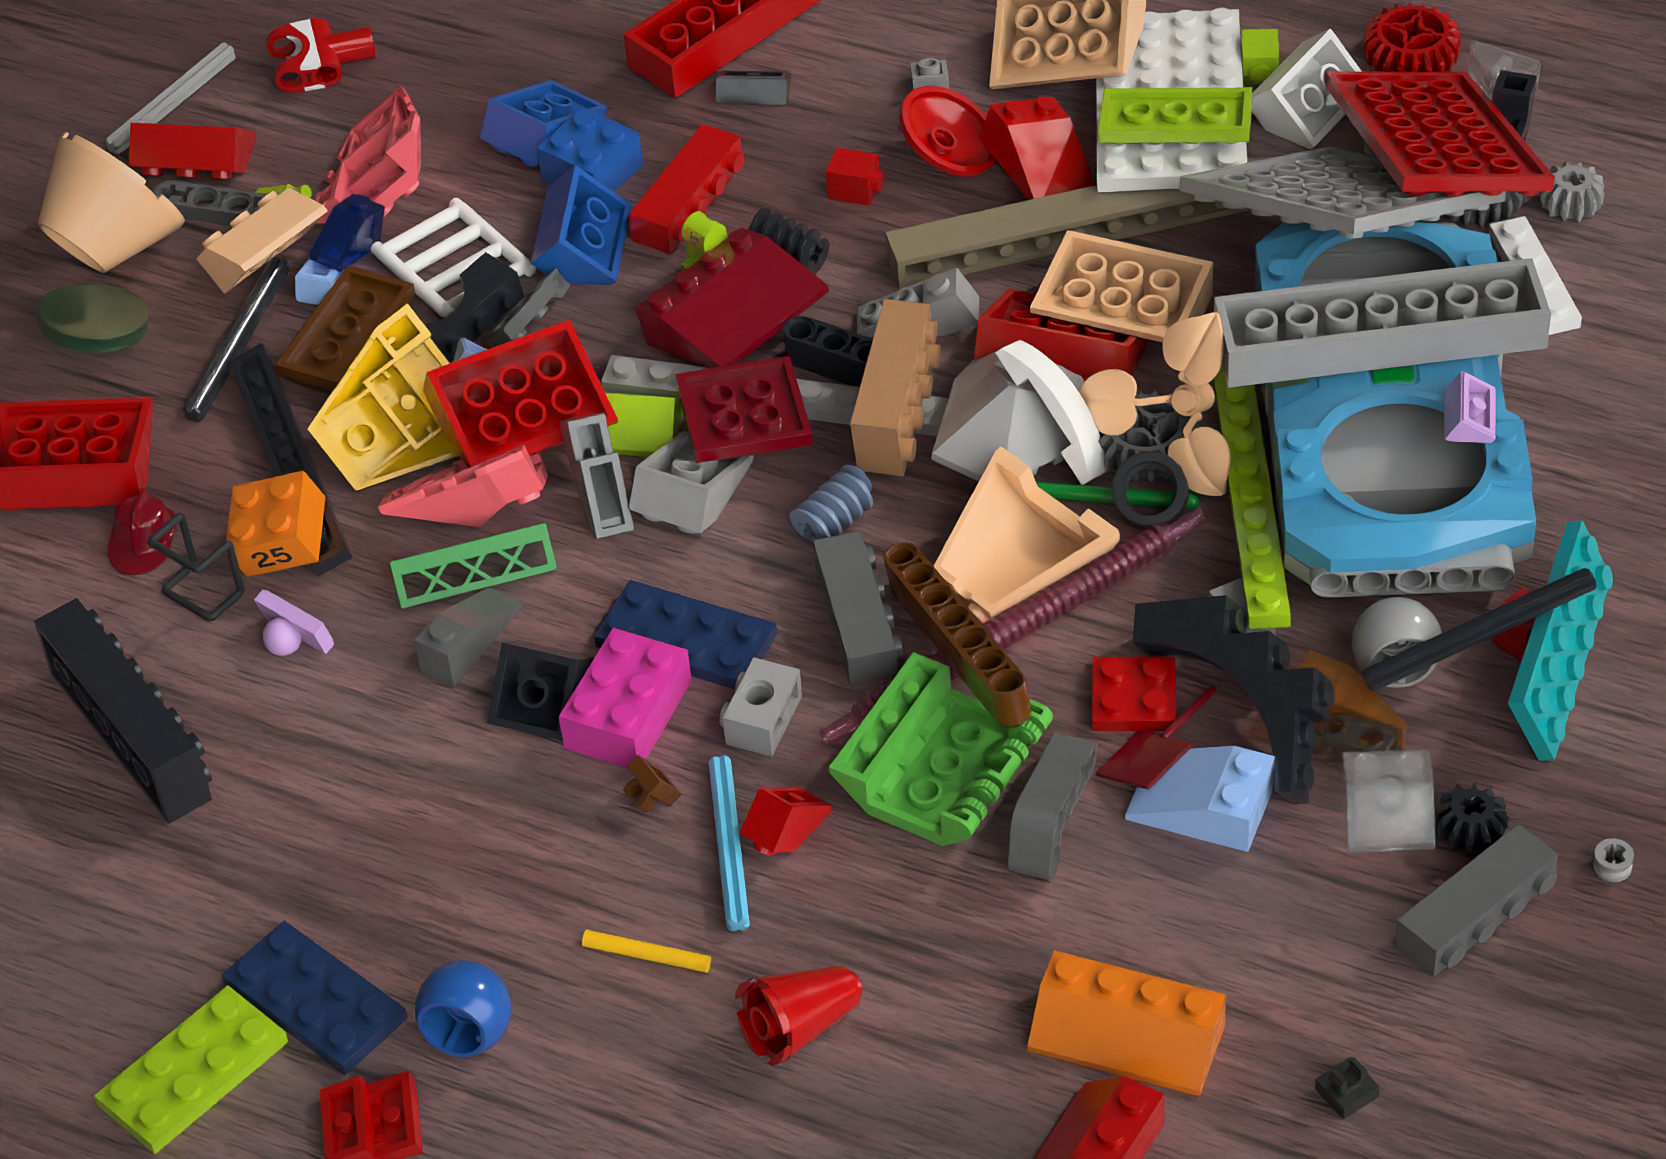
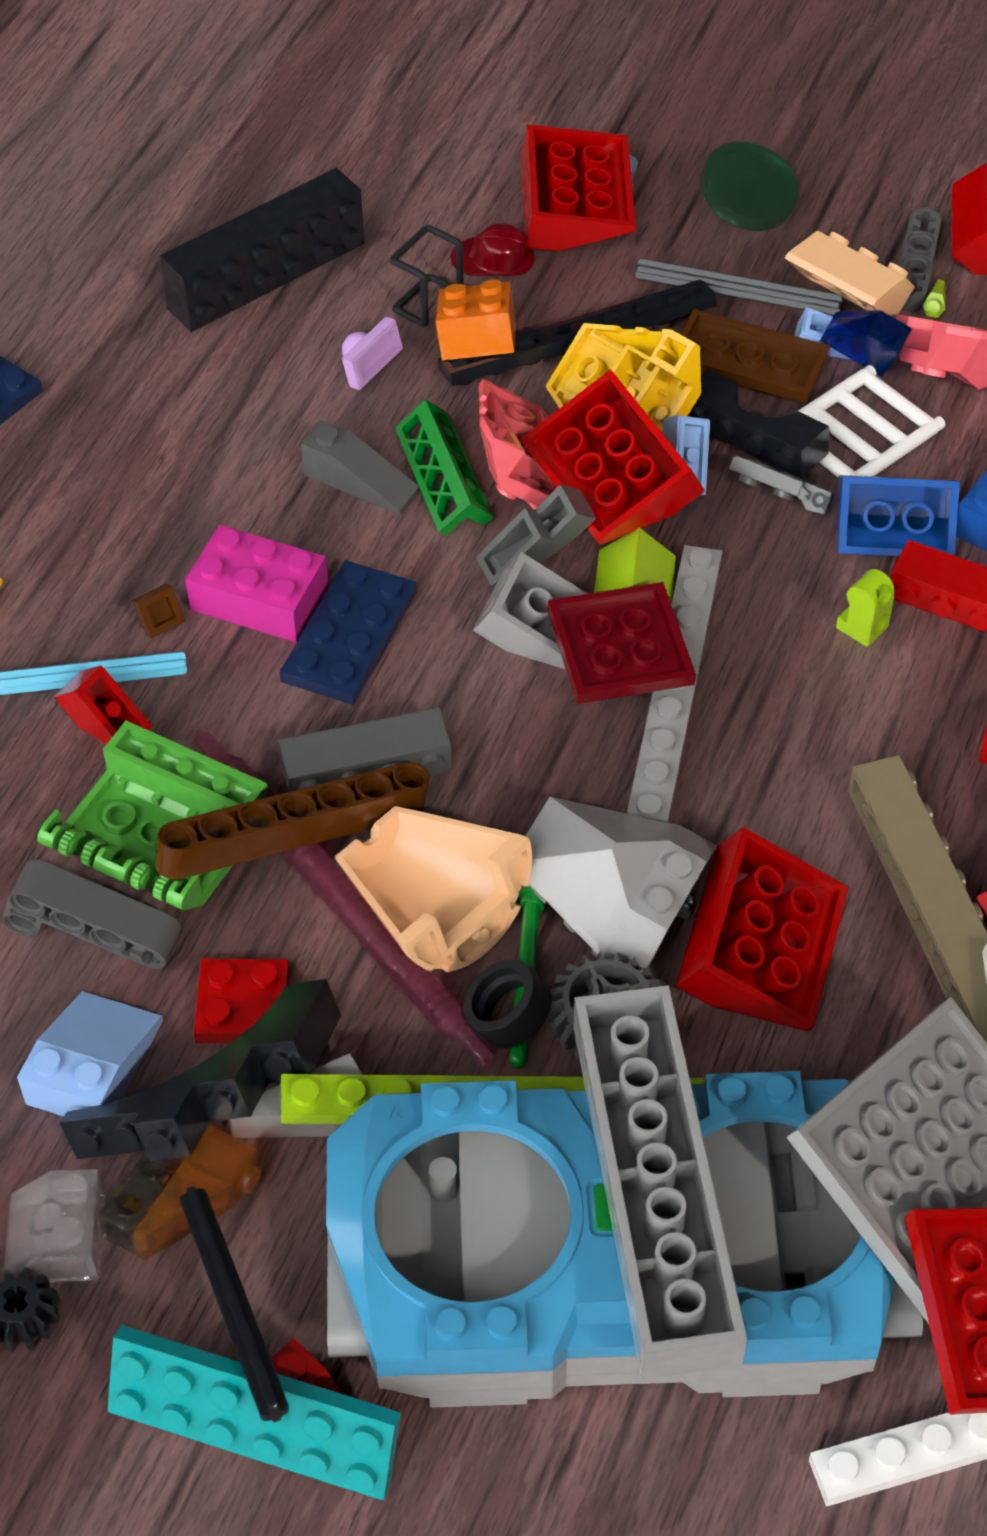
camera: 85 degrees right, 5 degrees up
(101, 206) = (874, 157): light nougat cone -> none
(534, 687) = (289, 513): black slope -> none
(729, 301) = (788, 631): dark red slope -> none
(761, 706) = (241, 686): light grey brick -> none
(795, 239) = (891, 678): black piece -> none
(826, 349) = (727, 727): black beam -> none
(833, 504) = (497, 732): sand blue piece -> none
(895, 387) = (635, 754): medium nougat brick -> none
(950, 297) = (798, 802): light grey slope -> none
(1064, 403) = (610, 898): white slope -> none
(1123, 286) = (812, 979): light nougat slope -> none
(1150, 754) = (149, 1007): dark red piece -> none
(1196, 351) = (615, 972): light nougat plant -> none
(1392, 628) = (266, 1236): light grey wheel -> none
(1469, 410) = (525, 1280): lavender slope -> none

